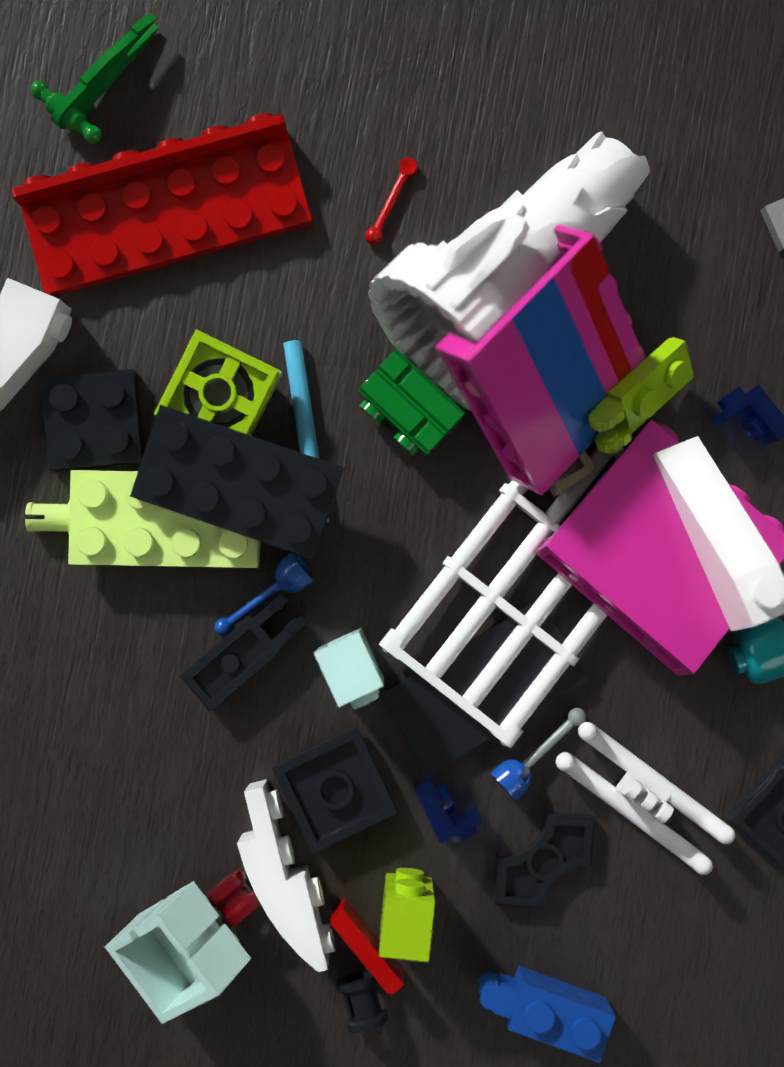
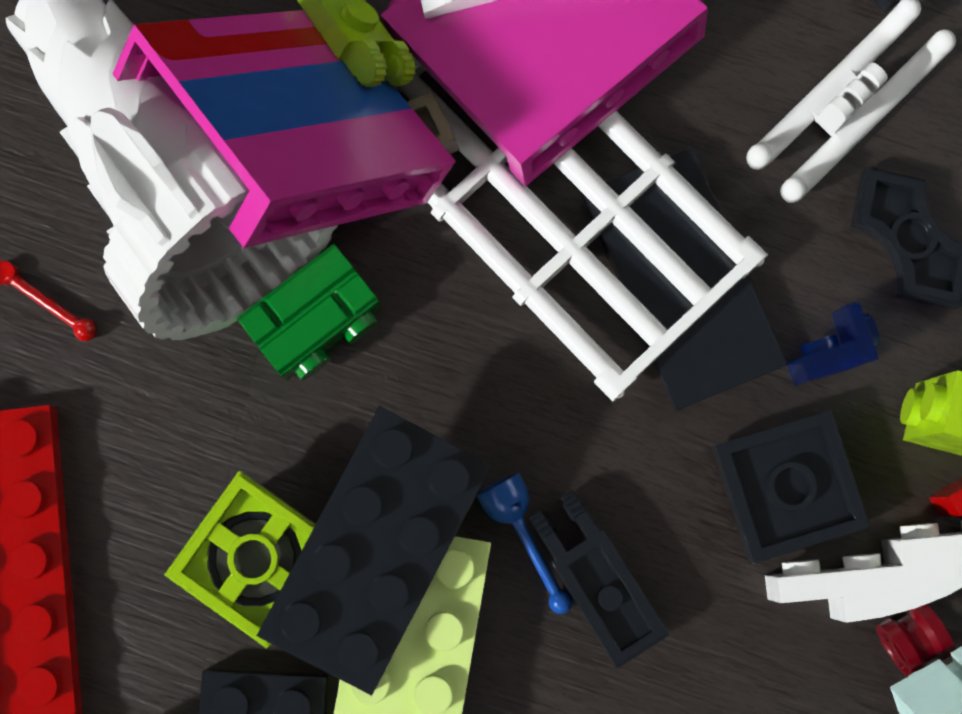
camera: 85 degrees left, 5 degrees down
(301, 398) = (277, 455): medium azure piece -> none
(350, 669) = (641, 437): light aqua brick -> none
(515, 775) = (801, 256): hinge -> none

